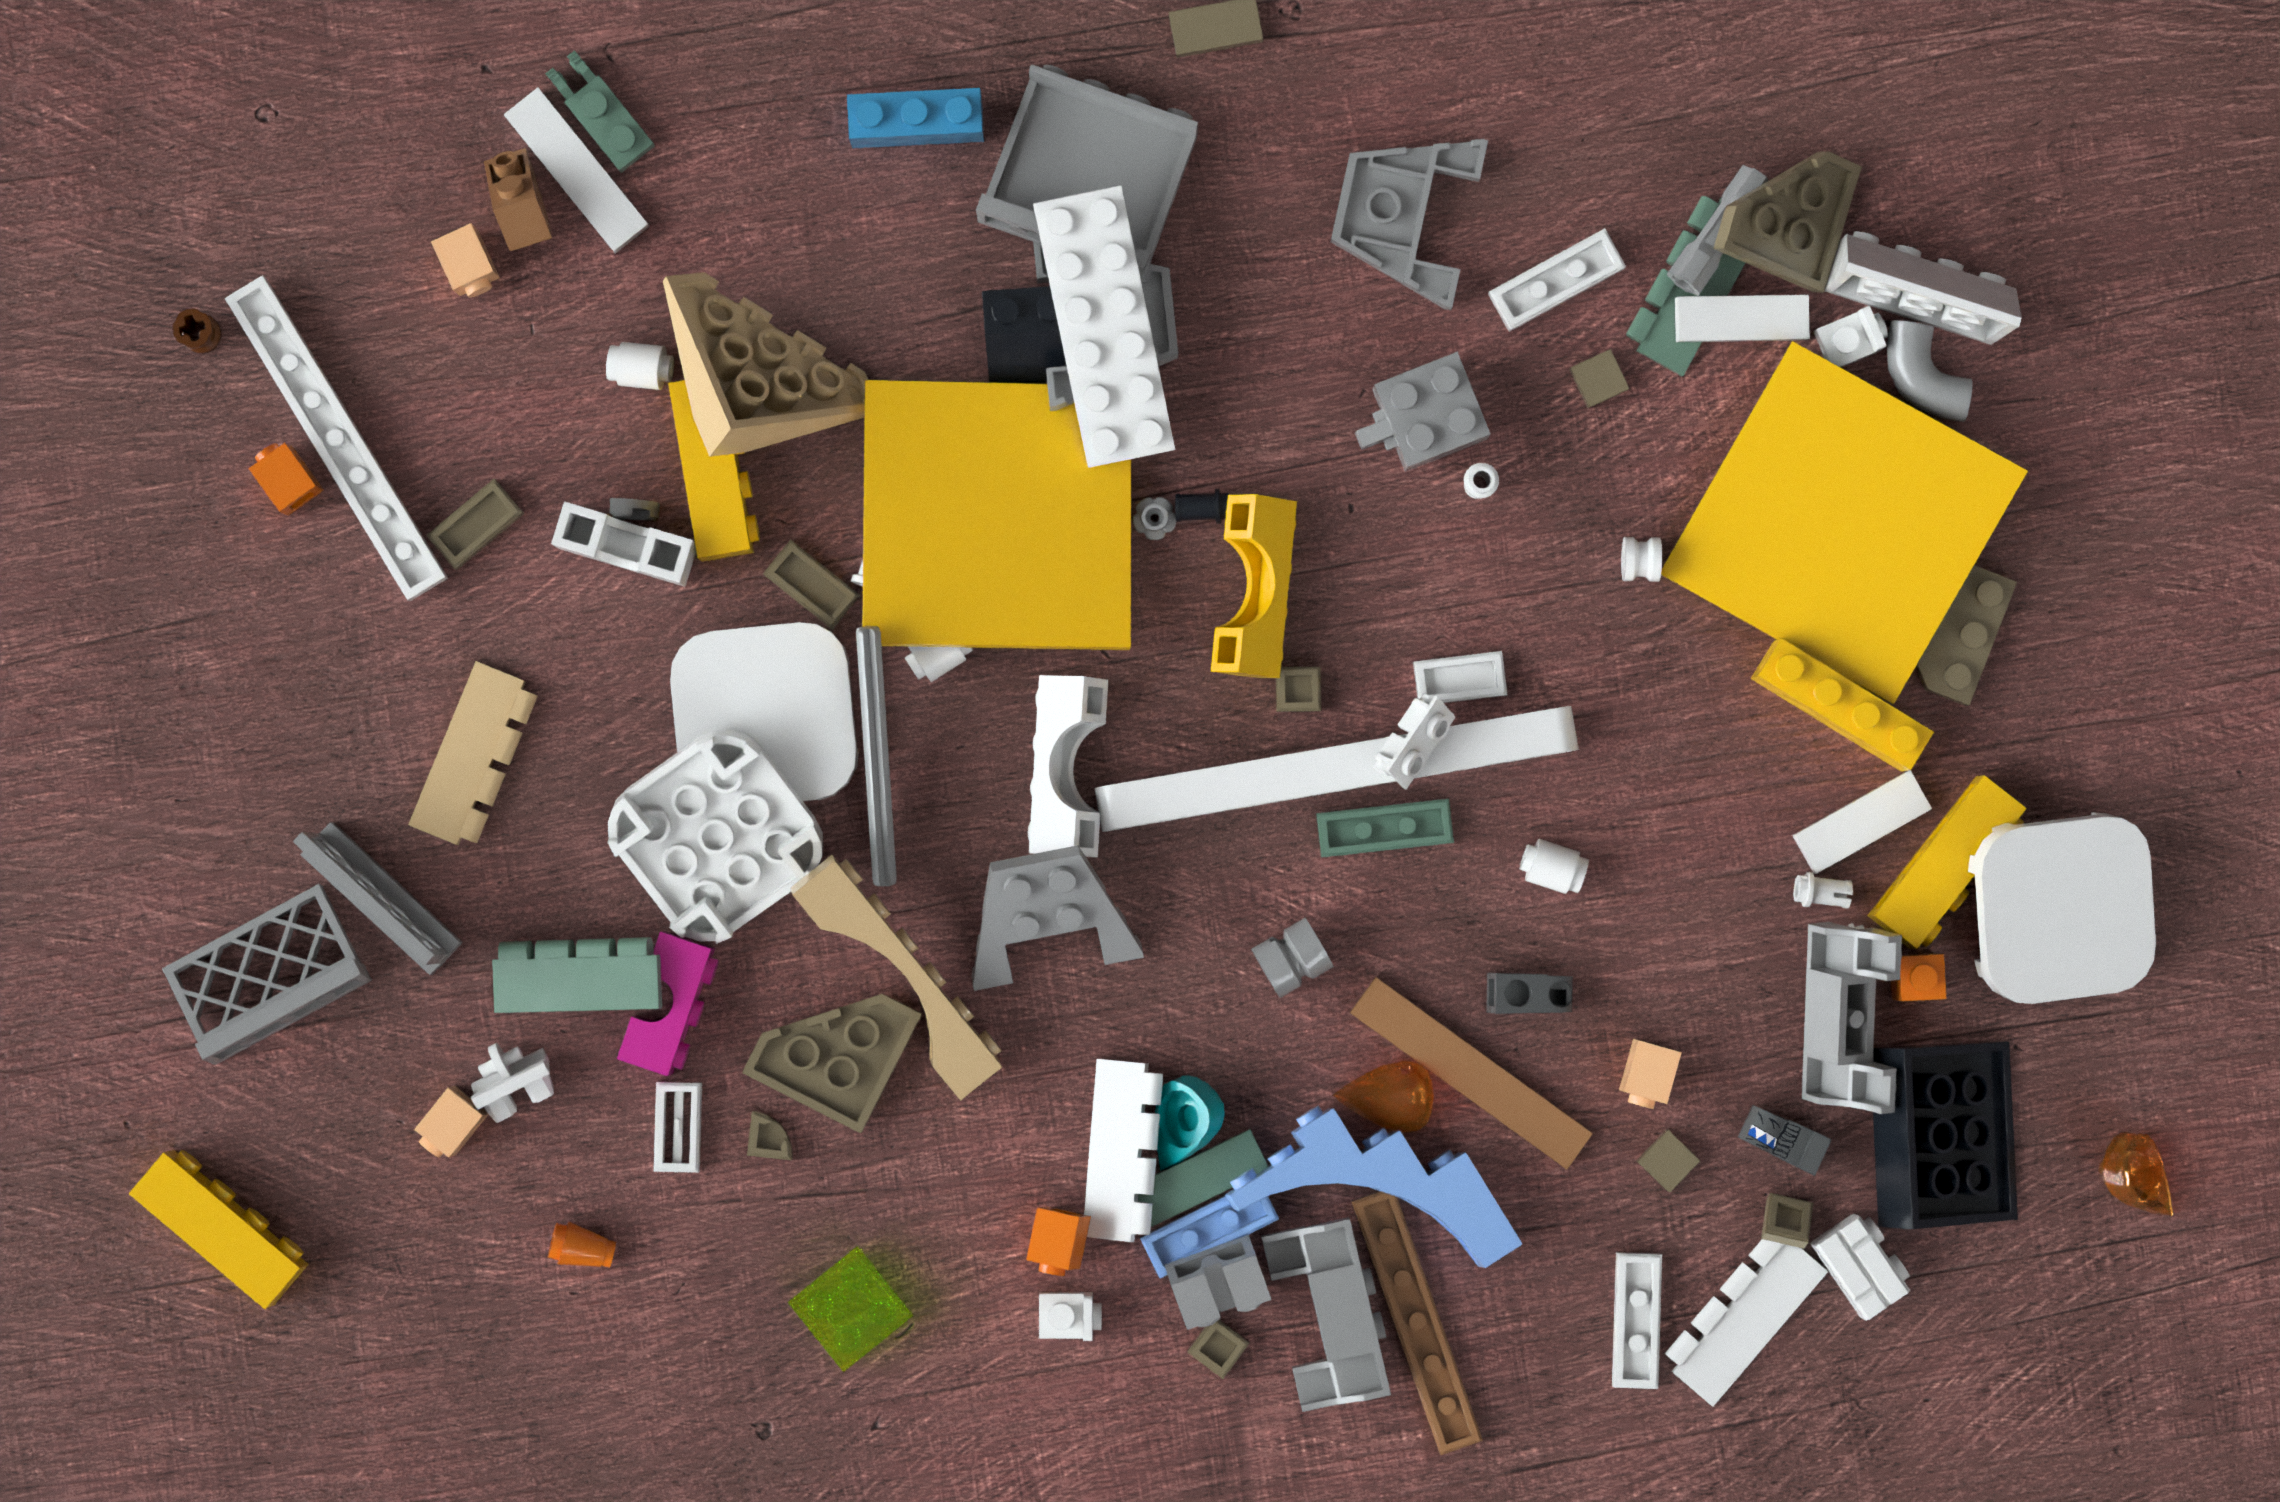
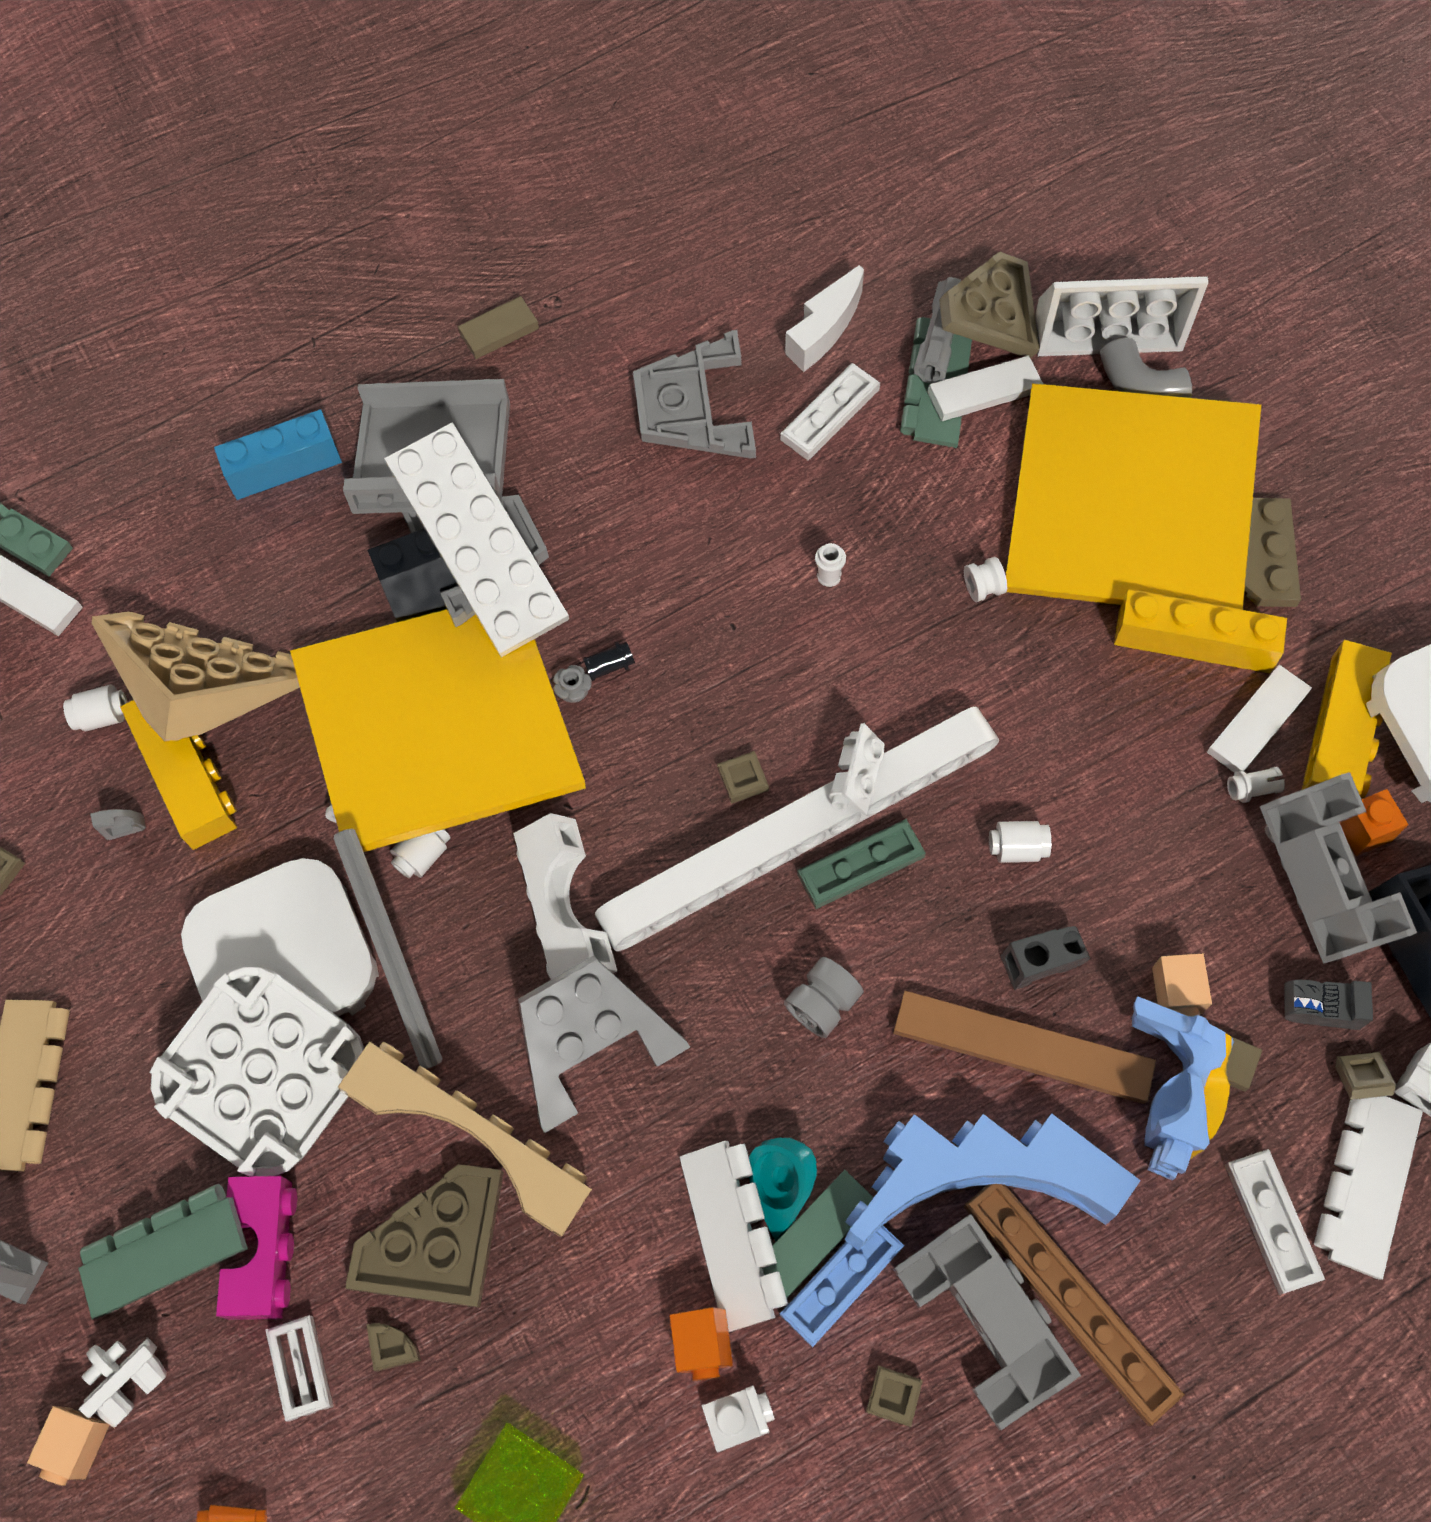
camera: 15 degrees left, 20 degrees down
(624, 544) = (86, 853): white arch -> none
(811, 584) = (292, 834): dark tan tile -> none
(1217, 1282) = (870, 1327): light grey brick -> none
(1263, 536) = (666, 661): yellow arch -> none
(1391, 1096) = (961, 1092): clear orange piece -> none
(1426, 413) = (766, 529): light grey hinge -> none
(1461, 677) = (884, 716): white tile -> none
(1595, 162) = (824, 320): none -> white slope
(1599, 378) = (893, 466): dark tan tile -> none
(1607, 1191) = (1192, 1103): none -> light blue hips
(1852, 337) = (1080, 370): white bracket -> none

